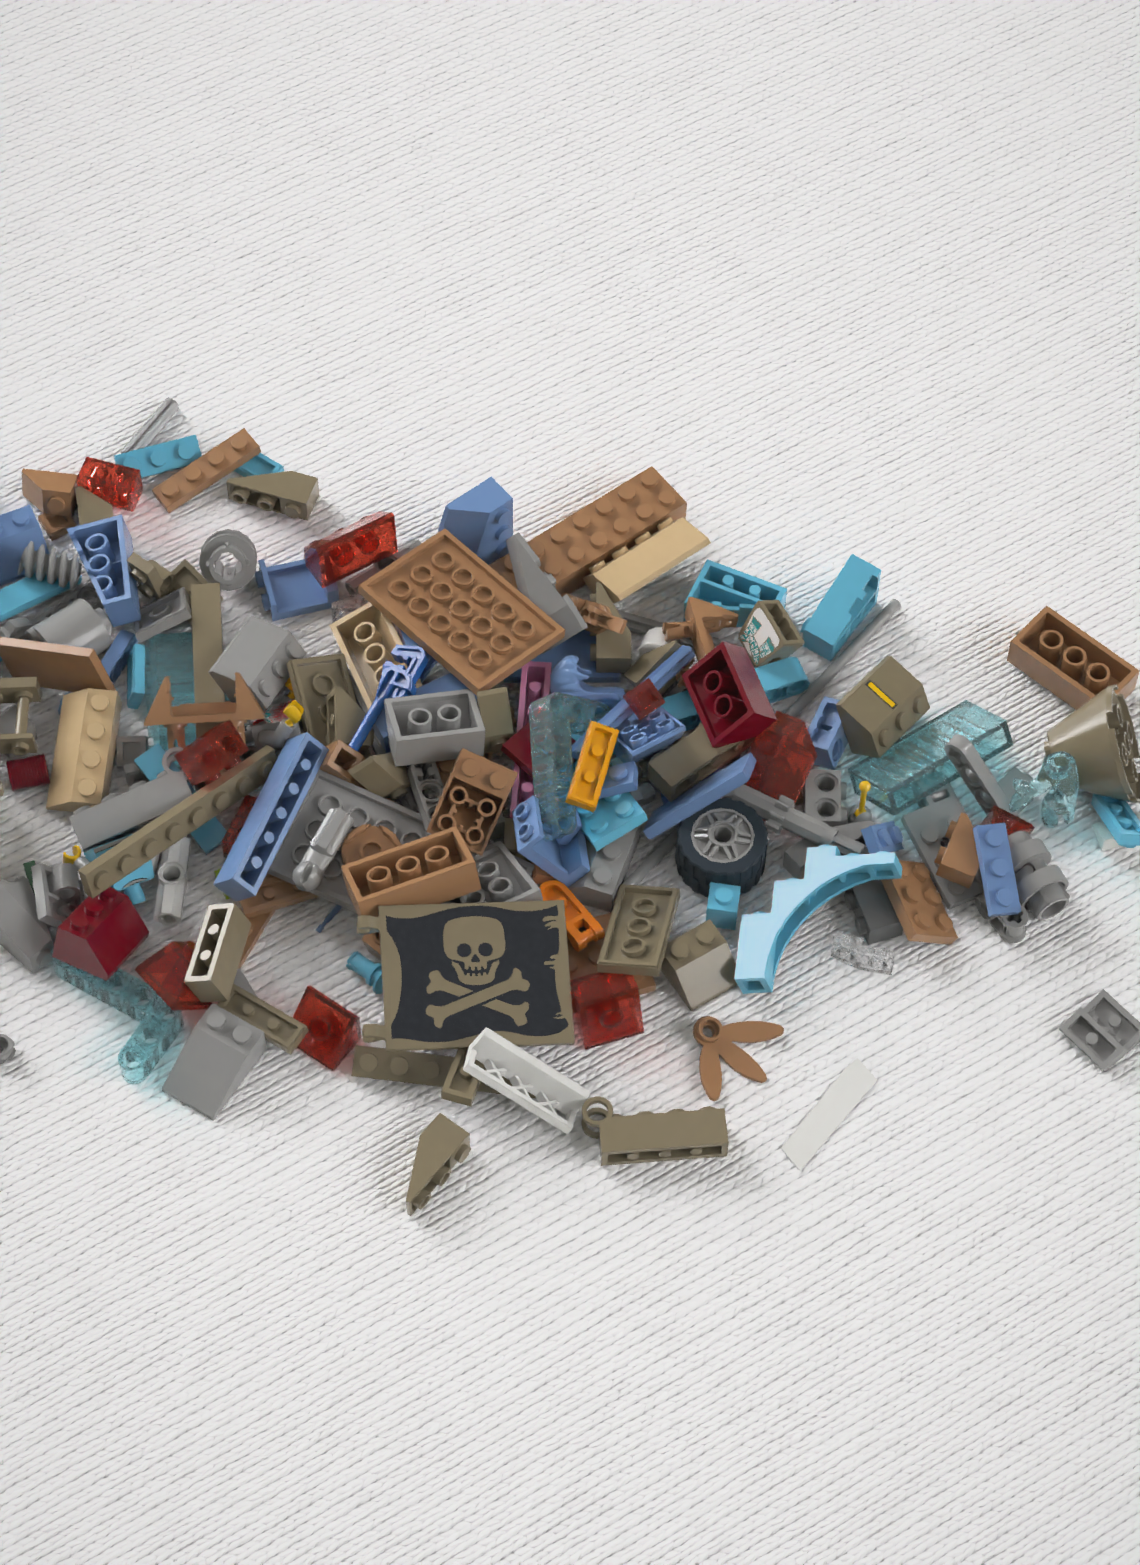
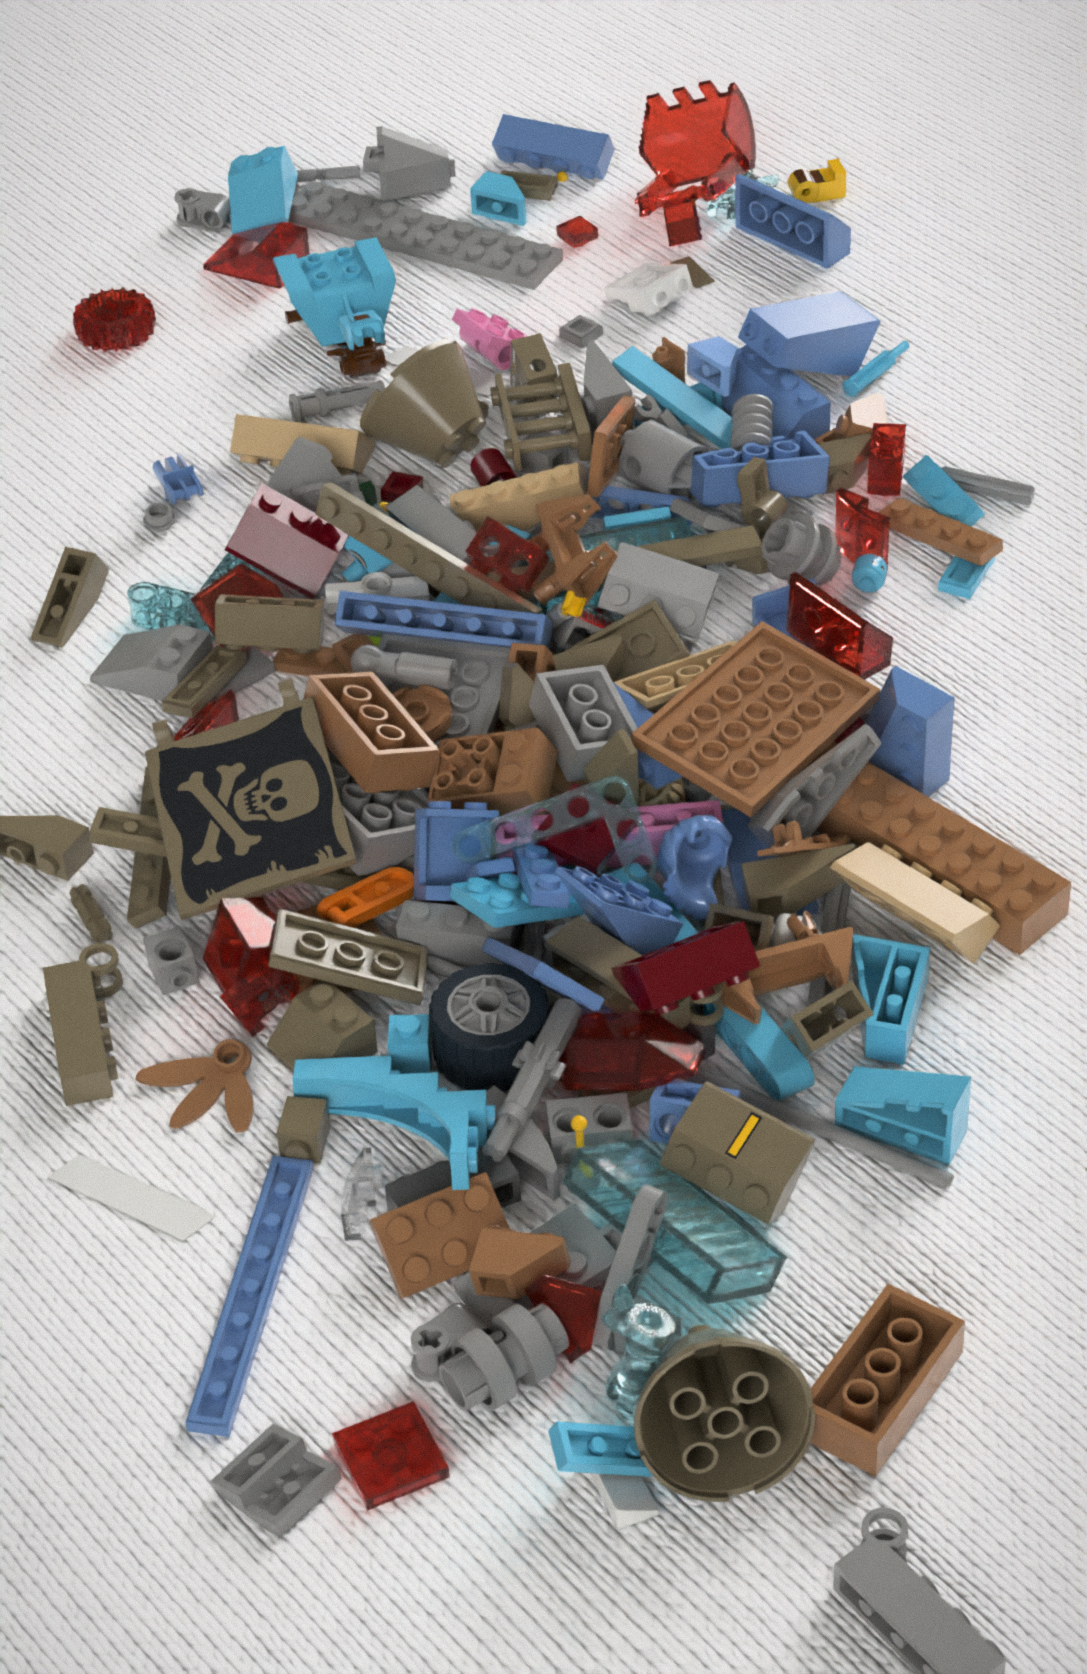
camera: 85 degrees right, 15 degrees down
(21, 847) = (399, 484): none -> dark red plate
(108, 1125) = (70, 596): none -> dark tan slope
(203, 518) = (859, 528): none -> clear red slope
(248, 524) = (869, 573): none -> medium azure piece
(279, 492) = (928, 591): dark tan slope -> none
(394, 683) = (639, 679): blue piece -> none
(518, 1128) = (90, 913): none -> dark tan axle
(526, 1076) = (136, 877): white fence -> none
(592, 766) = (544, 849): light orange tile -> none
(594, 1077) = (171, 960): none -> light grey brick
(644, 699) = (655, 880): clear red plate -> none
(653, 1004) = (259, 995): none -> clear red leg
(659, 678) = (659, 883): medium blue axle -> none
(794, 985) = (303, 1128): none -> dark tan brick
(883, 837) = (529, 1181): medium blue plate -> none
(935, 1035) = (249, 1297): none -> medium blue tile
(996, 869) = (482, 1291): medium blue plate -> none
(1089, 960) = (390, 1455): none -> clear red plate

